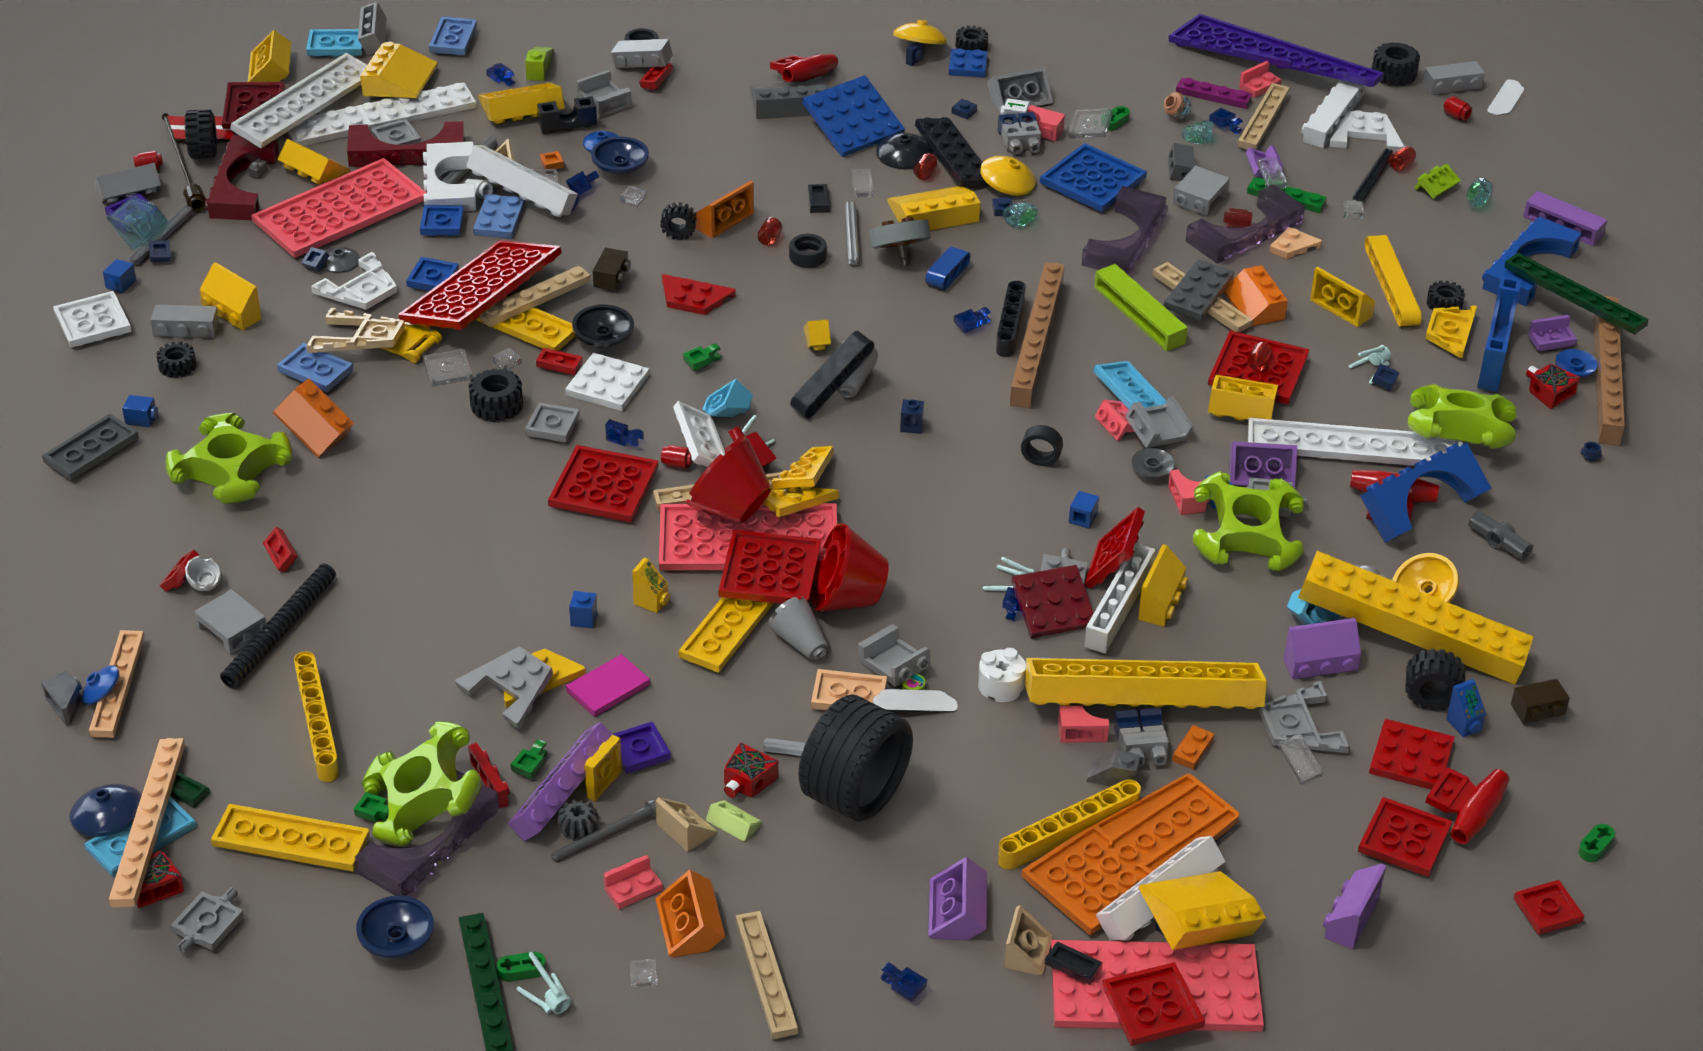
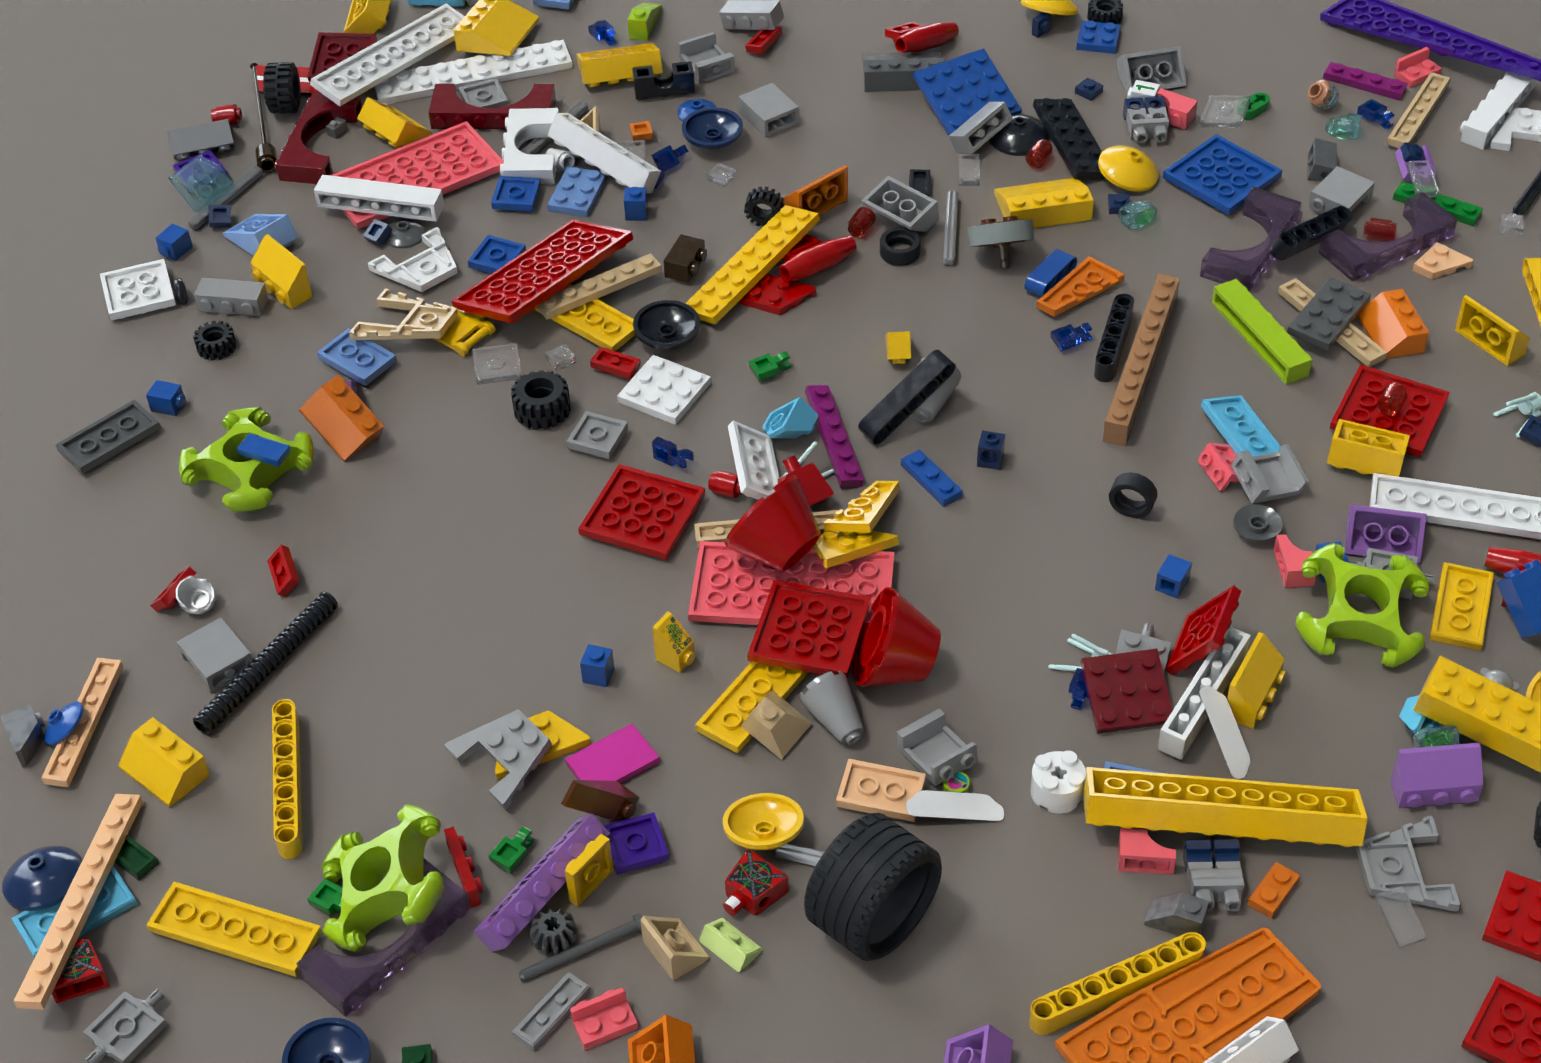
camera: 10 degrees right, 5 degrees up
(134, 318) = (180, 291): none -> black piece
(197, 262) = (252, 230): none -> light blue slope
(199, 710) = (163, 762): none -> yellow slope
(247, 446) = (264, 449): none -> blue tile
(313, 227) = (379, 198): none -> white brick
(557, 224) = (635, 204): none -> blue brick
(584, 881) = (551, 1011): none -> light grey tile
(606, 710) = (601, 799): none -> reddish brown slope
(669, 137) = (768, 109): none -> light grey brick
(674, 269) = (752, 263): none -> yellow plate
(725, 262) = (812, 256): none -> red plate
(750, 646) = (776, 724): none -> tan slope
(750, 721) = (763, 821): none -> yellow dish
(769, 413) = (834, 436): none -> magenta plate
(807, 214) = (903, 205): none -> light grey slope
(861, 442) = (931, 478): none -> blue plate
(869, 145) = (980, 127): none -> light grey brick
(975, 276) = (1079, 285): none -> orange wing
(1141, 625) = (1226, 731): none -> white sticker
(1175, 222) = (1309, 232): none -> black beam
(1260, 151) = (1412, 152): none -> dark blue plate
(1319, 615) = (1436, 736): none -> rock
(1333, 520) = (1461, 606): none -> yellow tile

